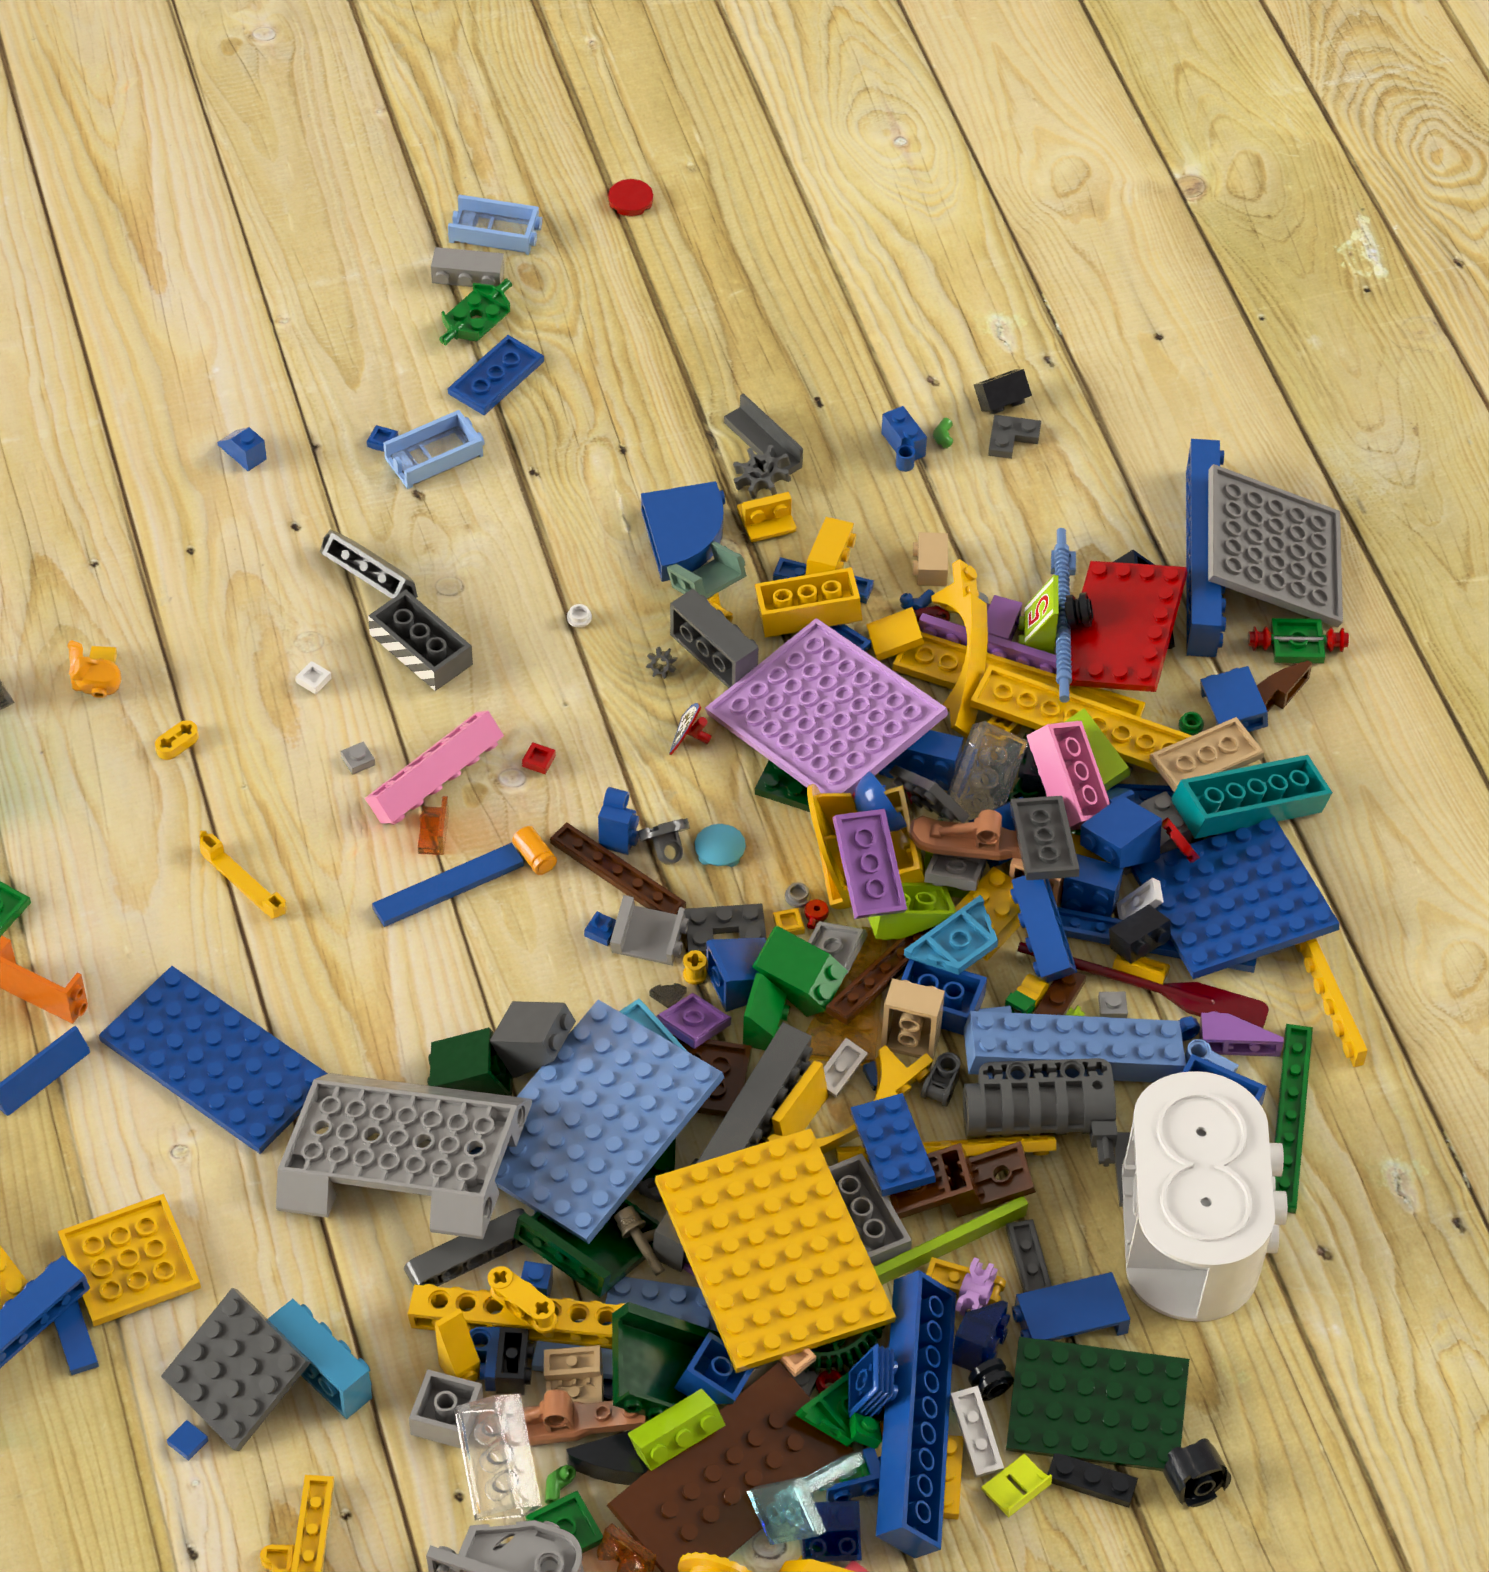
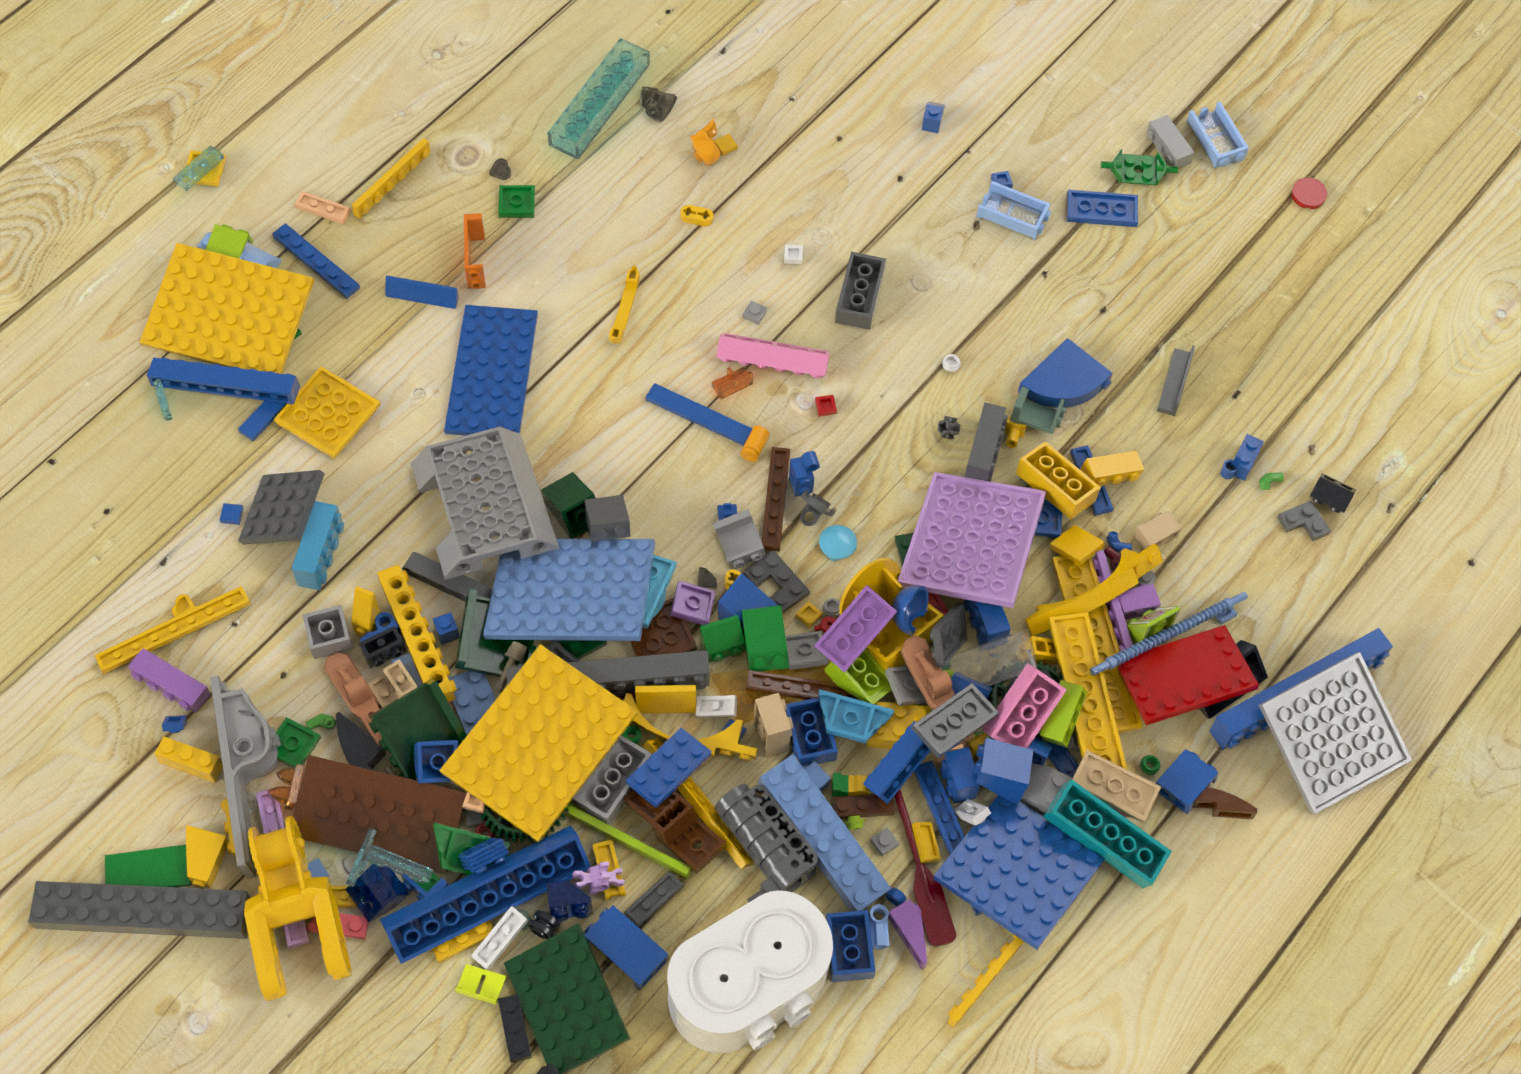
camera: 55 degrees right, 10 degrees up
(366, 565) = (895, 232): brick -> none
(497, 1457) = (306, 677): clear slope -> none
(522, 1299) = (415, 625): yellow piece -> none
(676, 1429) = (377, 761): lime brick -> none
(685, 727) = (911, 476): shield -> none
(762, 471) = (1146, 394): dark grey gear -> none
(767, 517) = (1113, 418): yellow bracket -> none
(865, 1430) = (453, 870): green plate -> none
(941, 1083) = (748, 770): dark grey piece -> none
(1078, 610) = (1171, 640): black wheel -> none
(1140, 933) = (941, 825): black brick -> none
(1179, 840) = (1030, 807): red tile -> none
(1292, 1108) = (875, 1002): green tile -> none
(1298, 640) = (1275, 793): green plate -> none

